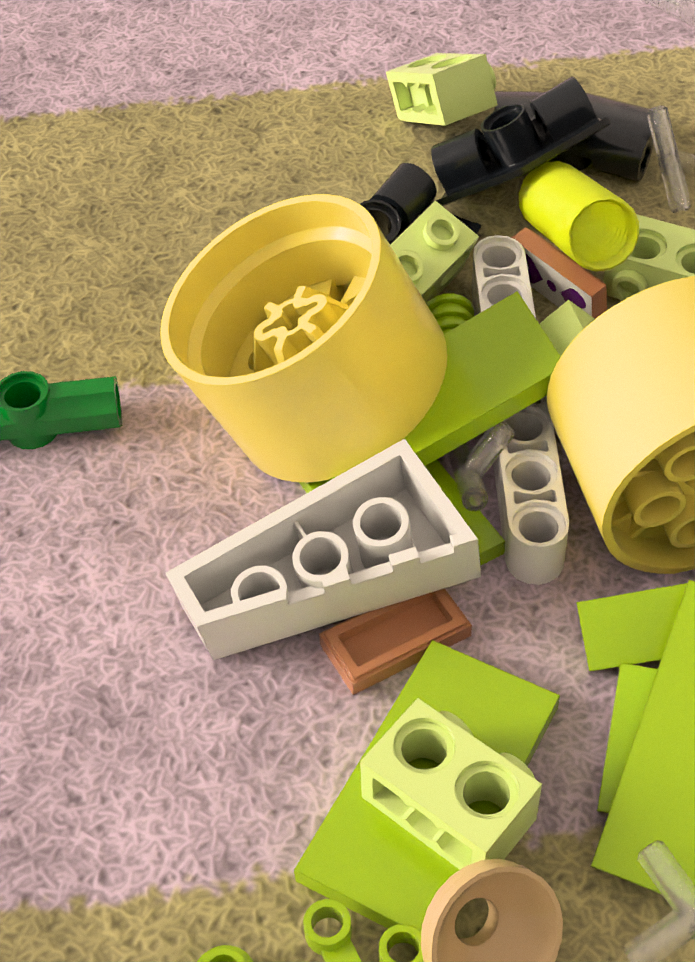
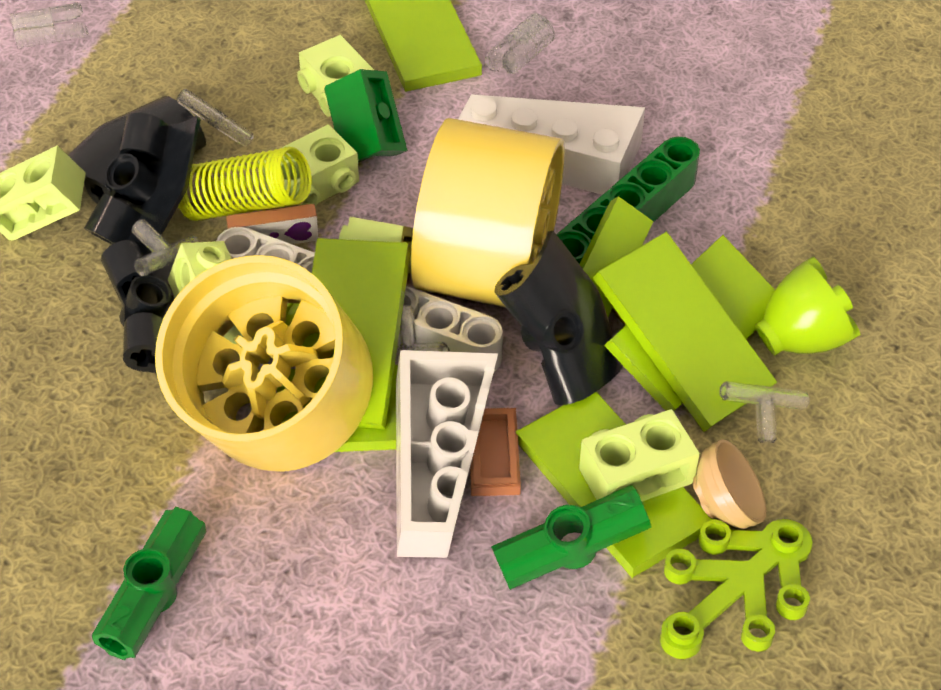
camera: 65 degrees left, 0 degrees up
(290, 770) = (600, 526): none -> green piece
(443, 193) = (161, 251): none -> clear piece
(632, 555) = (562, 320): none -> black panel

